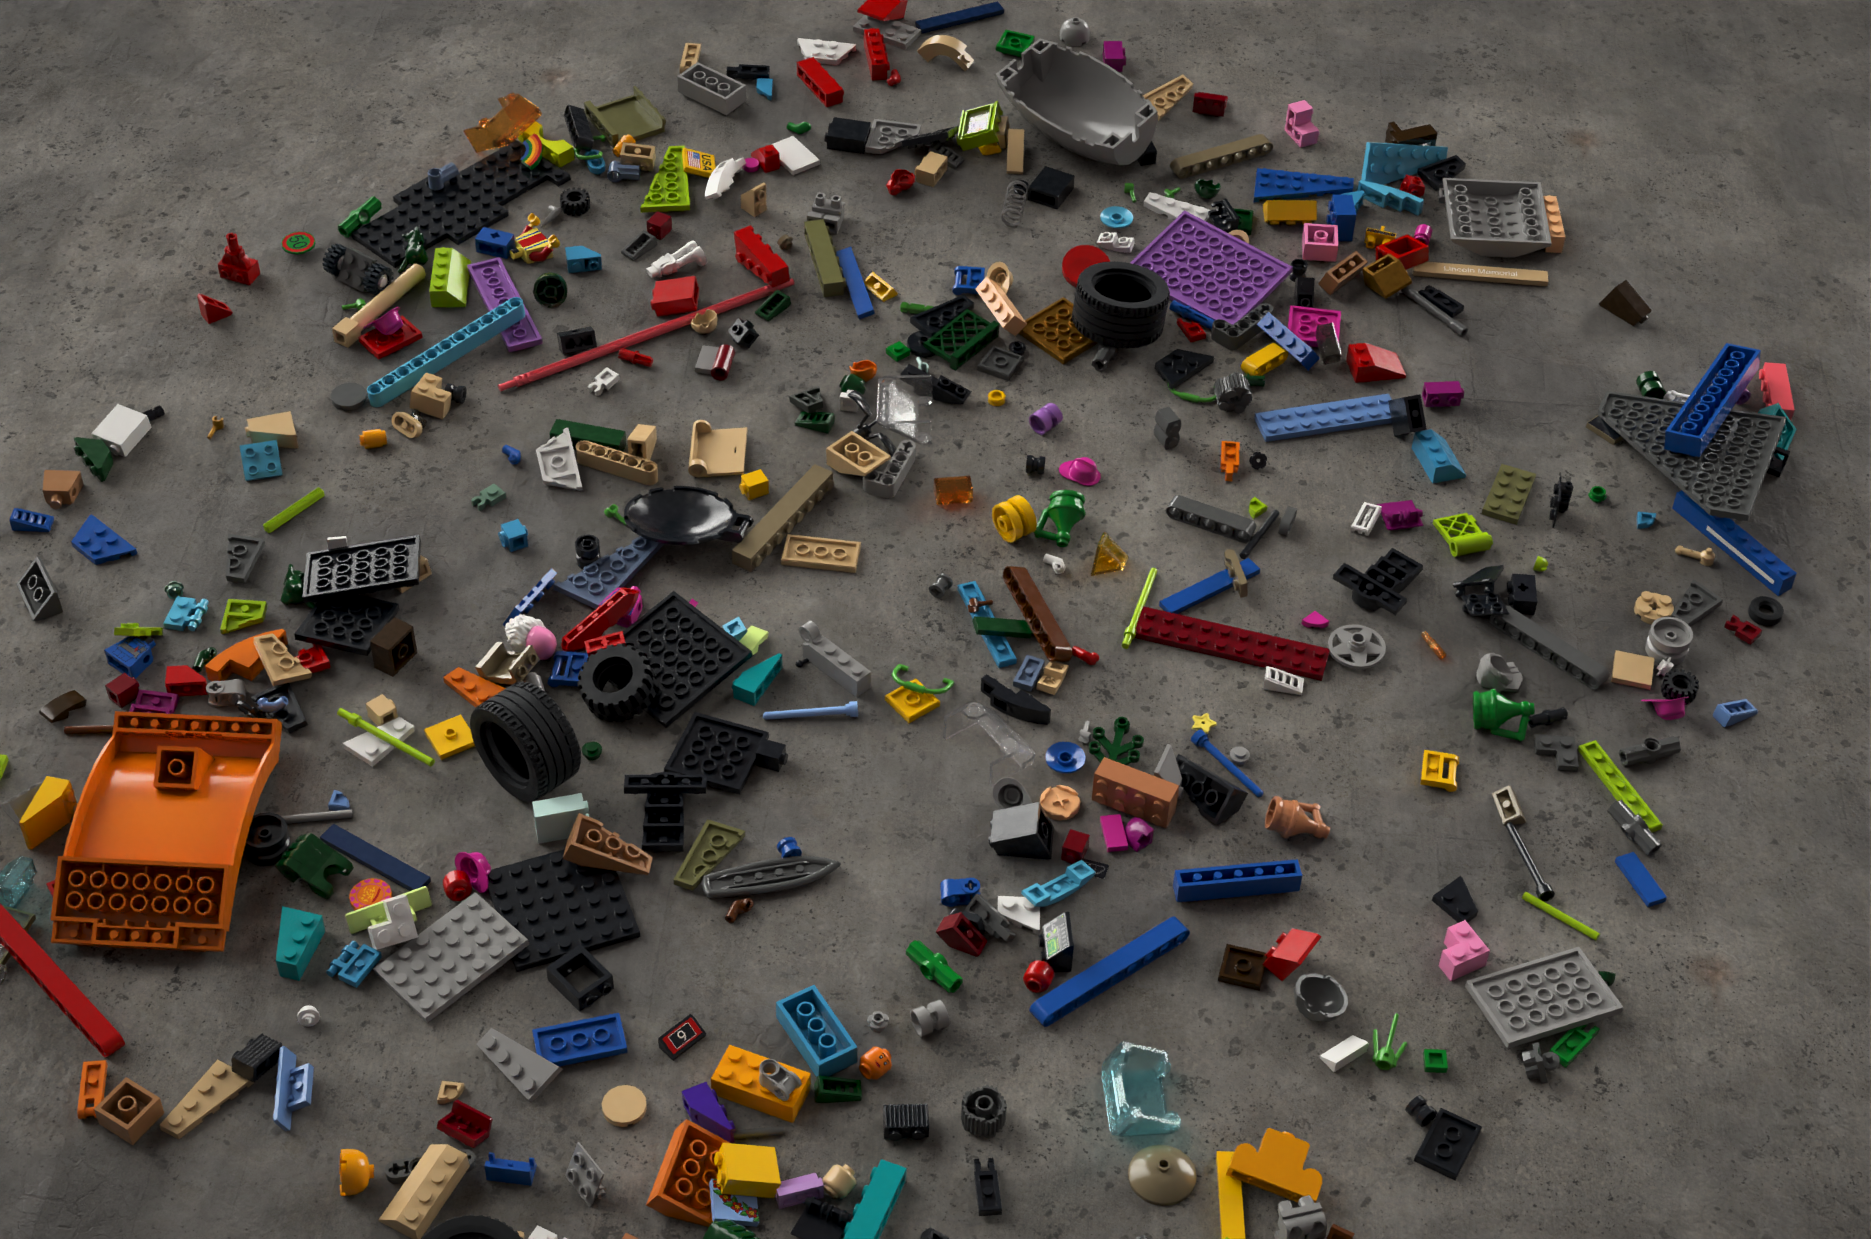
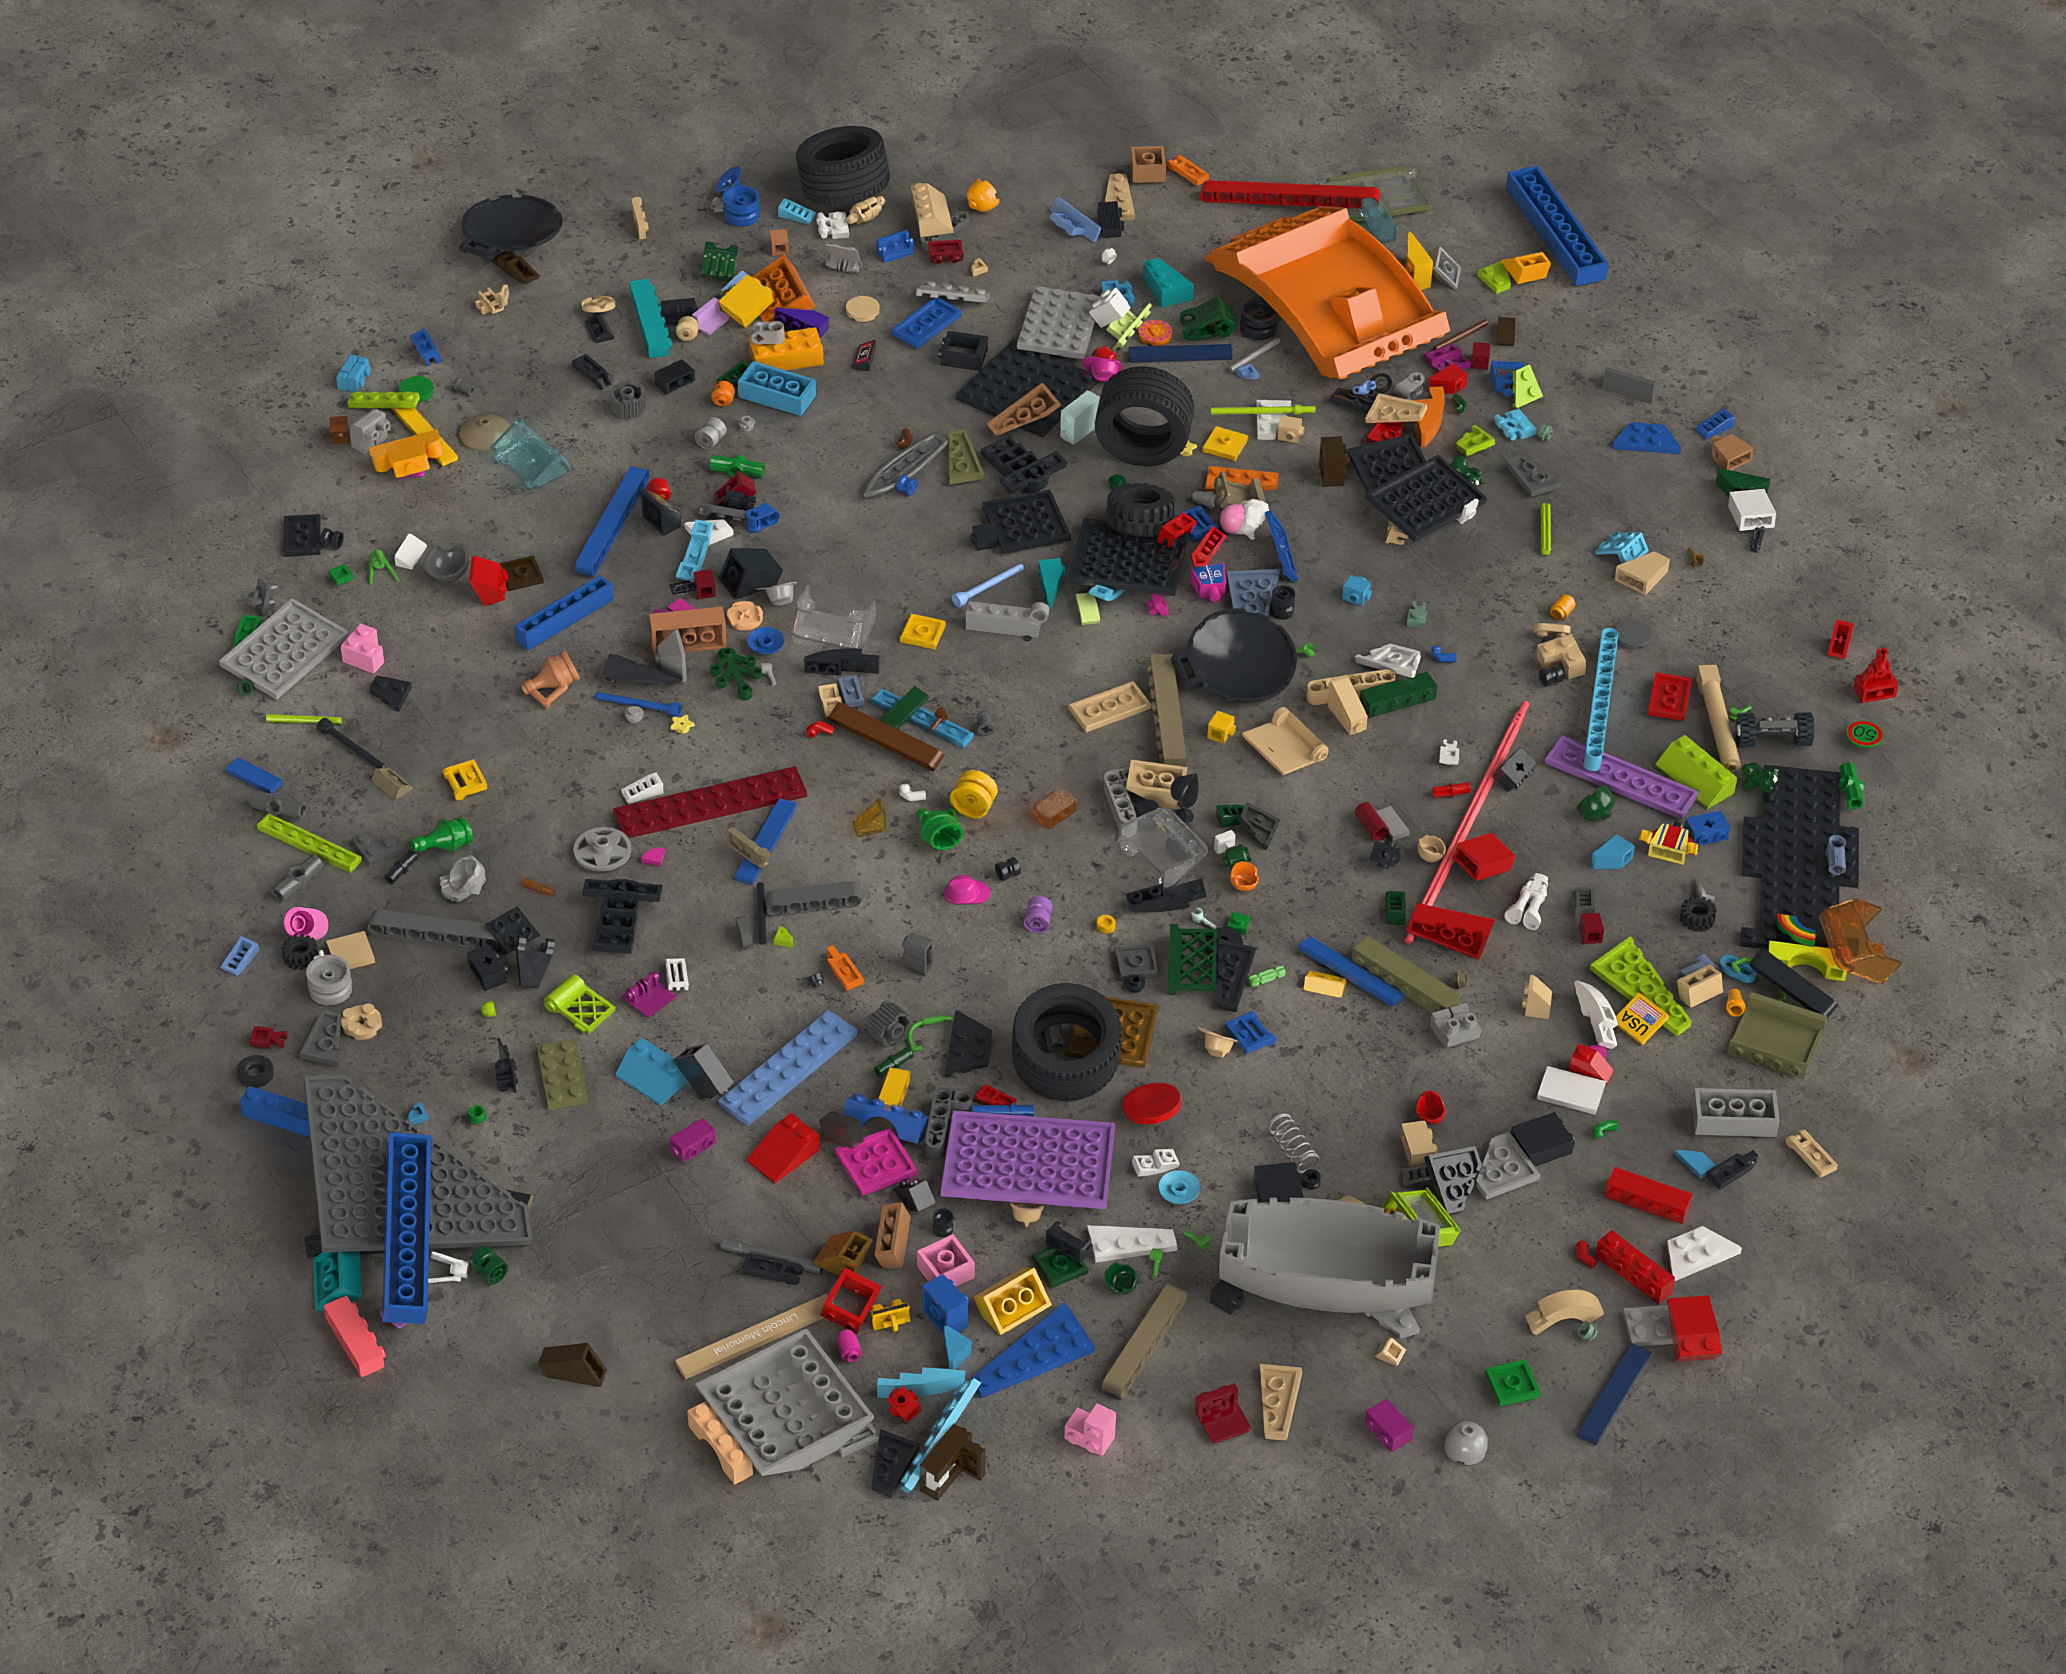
camera: 145 degrees right, 0 degrees up
(388, 323) = (1681, 688): dark pink piece -> none
(918, 688) = (926, 632): bright green piece -> none
(1001, 306) = (1186, 1005): light nougat brick -> none
(1130, 632) = (799, 764): lime bar -> none

